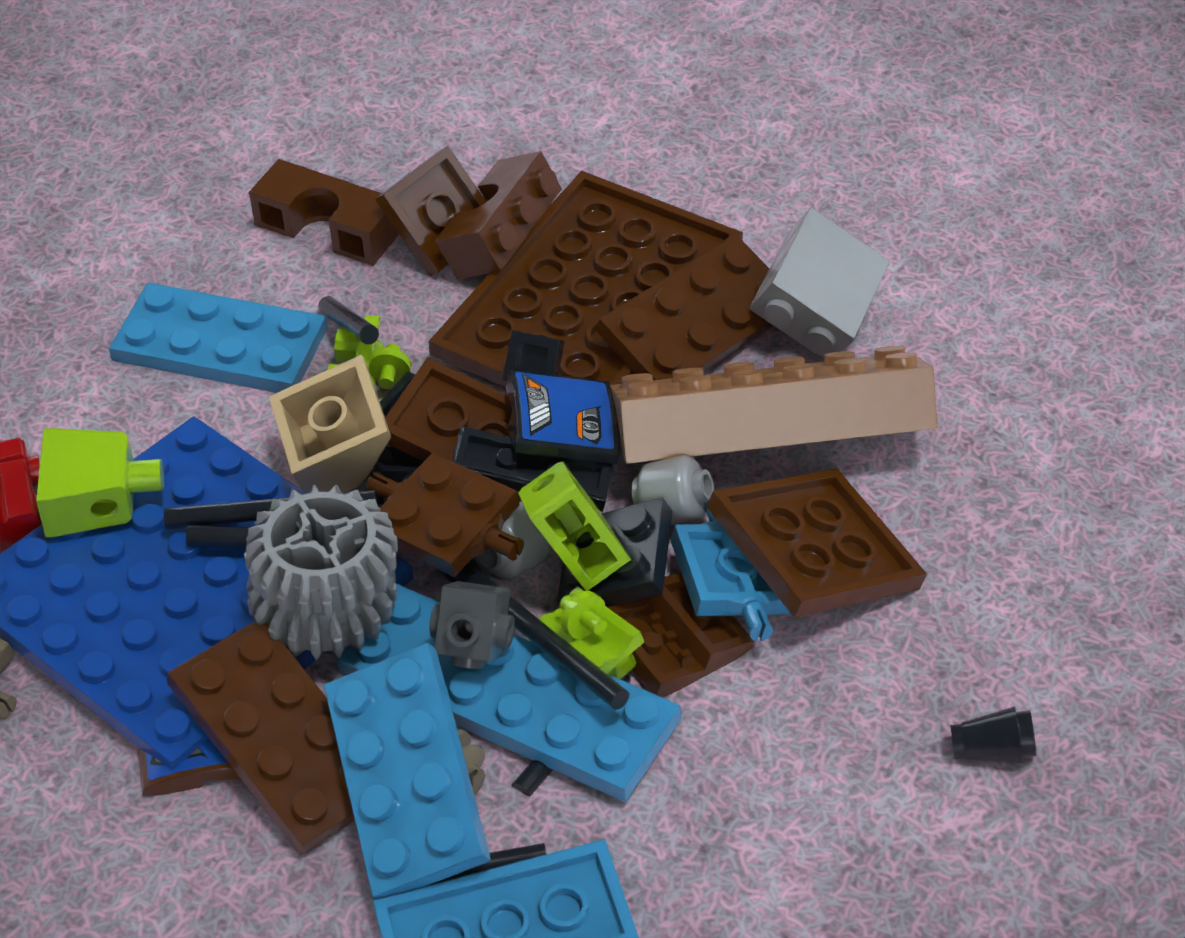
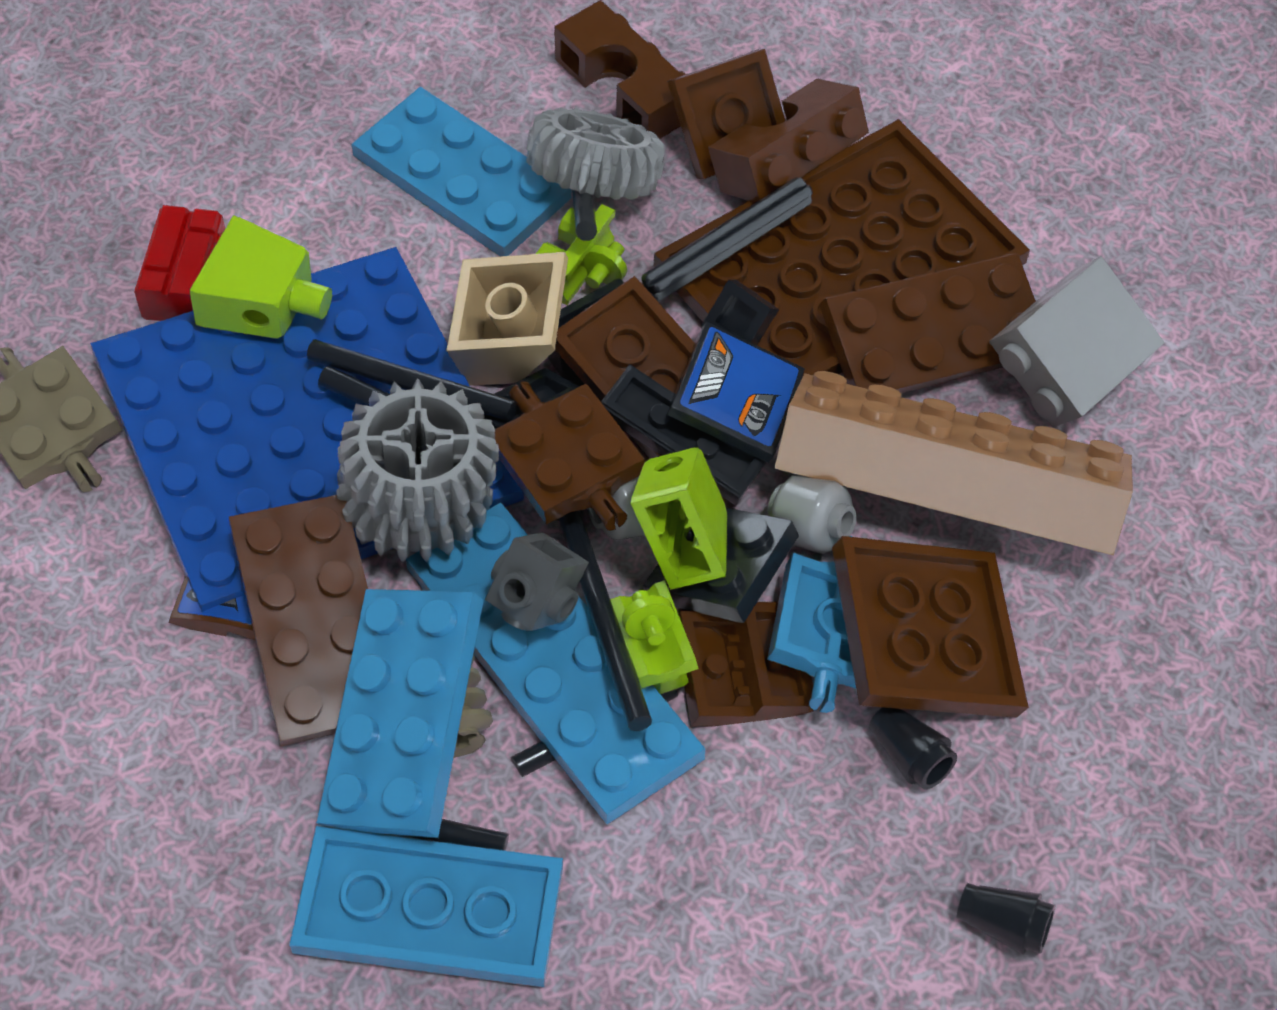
camera: 20 degrees right, 10 degrees up
(338, 278) = (595, 153): none -> light grey gear
(489, 304) = (727, 238): none -> black axle
(850, 639) = (914, 747): none -> black cone

